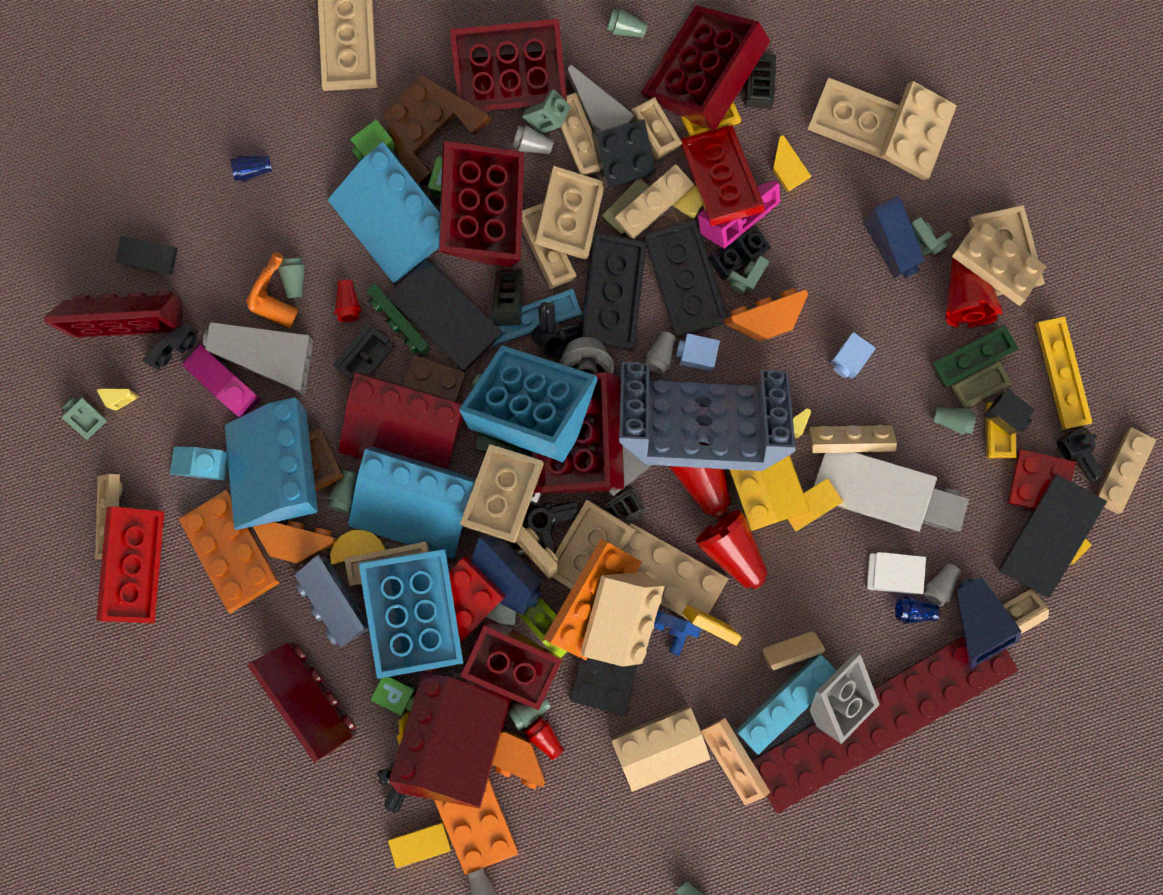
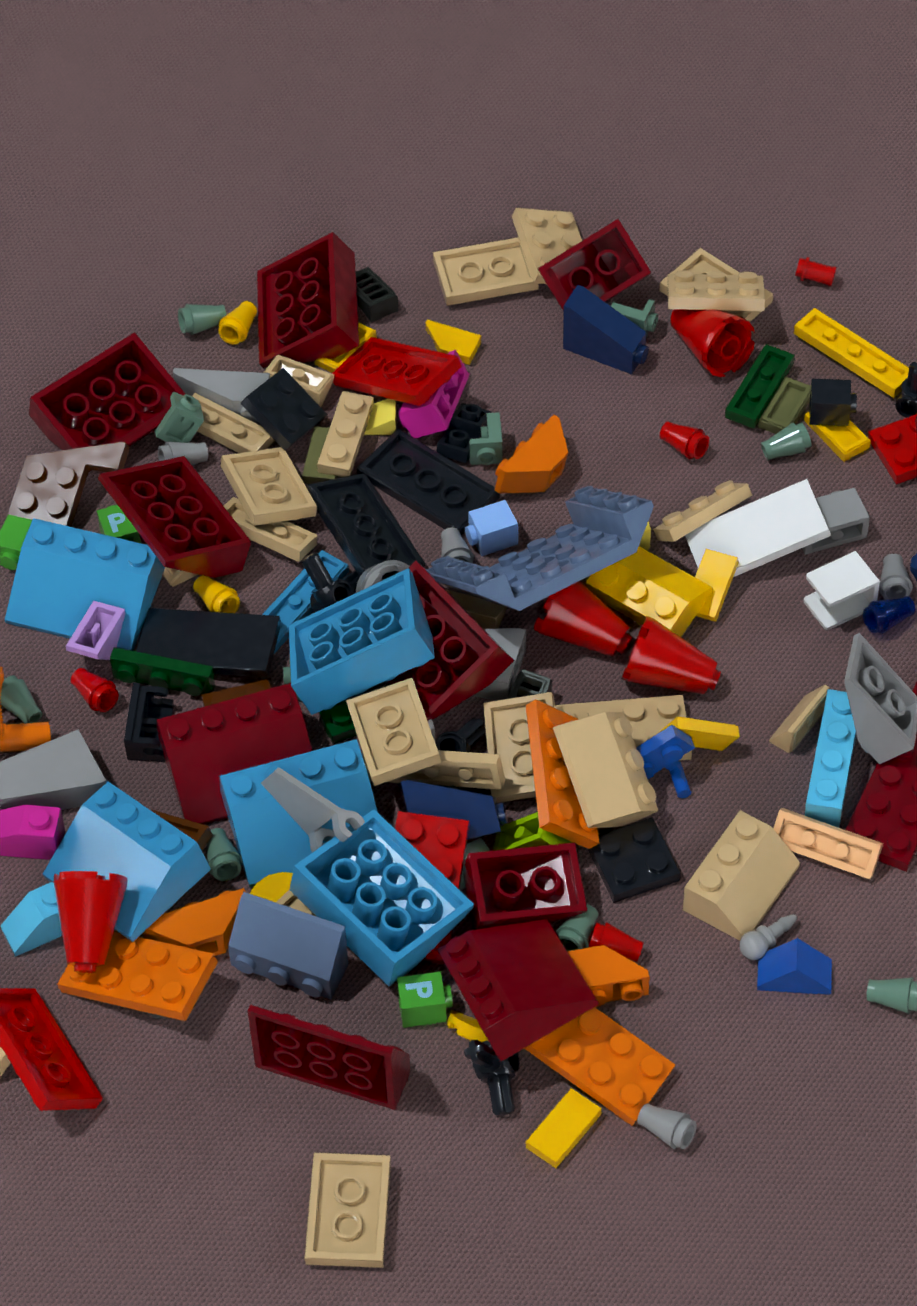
camera: 30 degrees left, 30 degrees down
(214, 497) = (88, 915): none -> red cone
(248, 810) = (348, 1210): none -> tan plate
(372, 262) = (97, 631): none -> lavender slope
(405, 532) = (311, 809): none -> light grey flag
(476, 282) = (216, 595): none -> yellow cone
(503, 312) = (262, 590): pearl dark grey slope -> none
(634, 802) = (756, 943): none -> light grey bar
(644, 838) = (795, 969): none -> blue slope
(647, 47) = (236, 325): none -> yellow cone
(852, 356) = (644, 447): light blue brick -> none
(887, 369) = (687, 440): none -> red cone
(929, 178) = (601, 263): none -> dark red slope
(1092, 281) = (815, 271): none -> red pin

